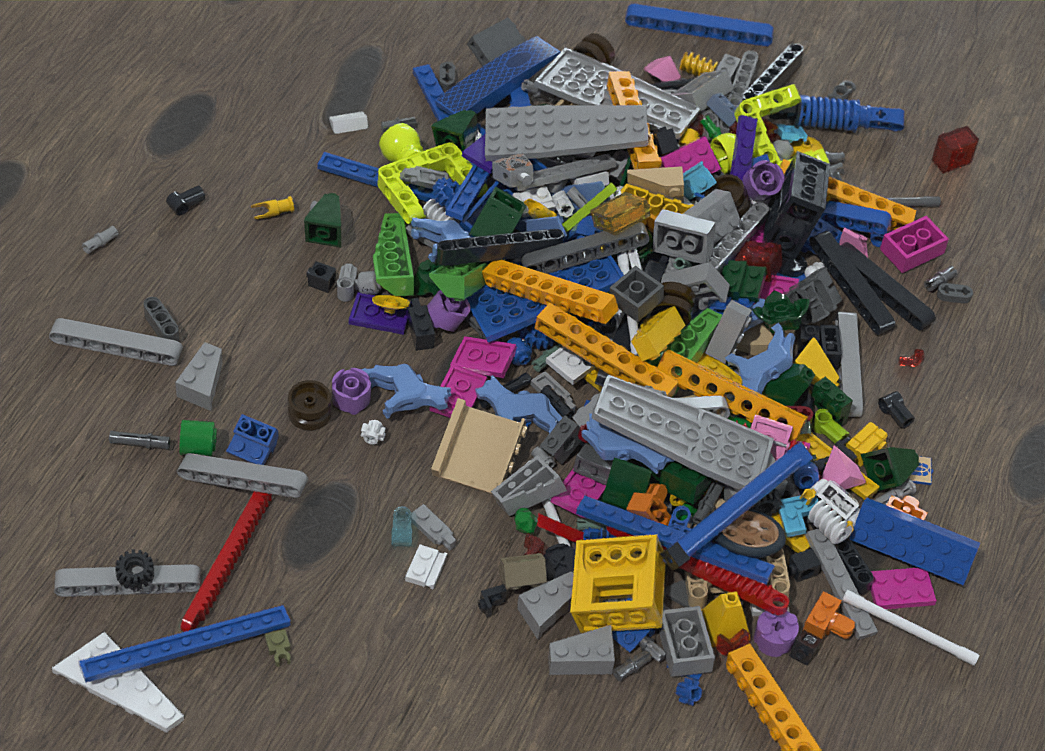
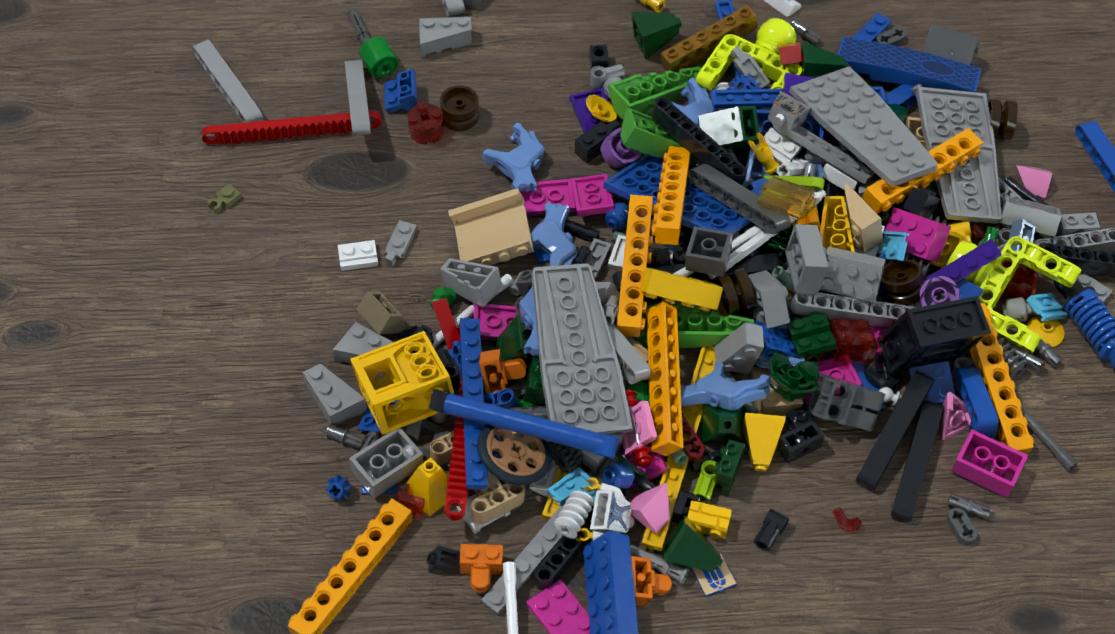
camera: 65 degrees right, 5 degrees up
(127, 689) = (139, 118): white wing -> none
(130, 560) = (228, 84): black tyre -> none
(183, 643) = (188, 140): blue plate -> none
(307, 440) = (425, 123): none -> clear red brick
(351, 390) = (493, 127): medium lavender brick -> none
(367, 189) = (705, 41): none -> pearl gold brick
(373, 432) = (463, 160): white gear -> none
(402, 528) = (380, 222): clear light blue piece -> none
(435, 138) = (790, 53): none -> red panel
(491, 596) = (347, 307): black bracket -> none
(533, 545) = (414, 317): clear red bracket -> none
(696, 65) = (1066, 198): yellow piece -> none
(776, 633) = (439, 530): medium lavender brick -> none
(804, 565) = (530, 521): black brick -> none
(849, 366) = (796, 468): light grey beam -> none

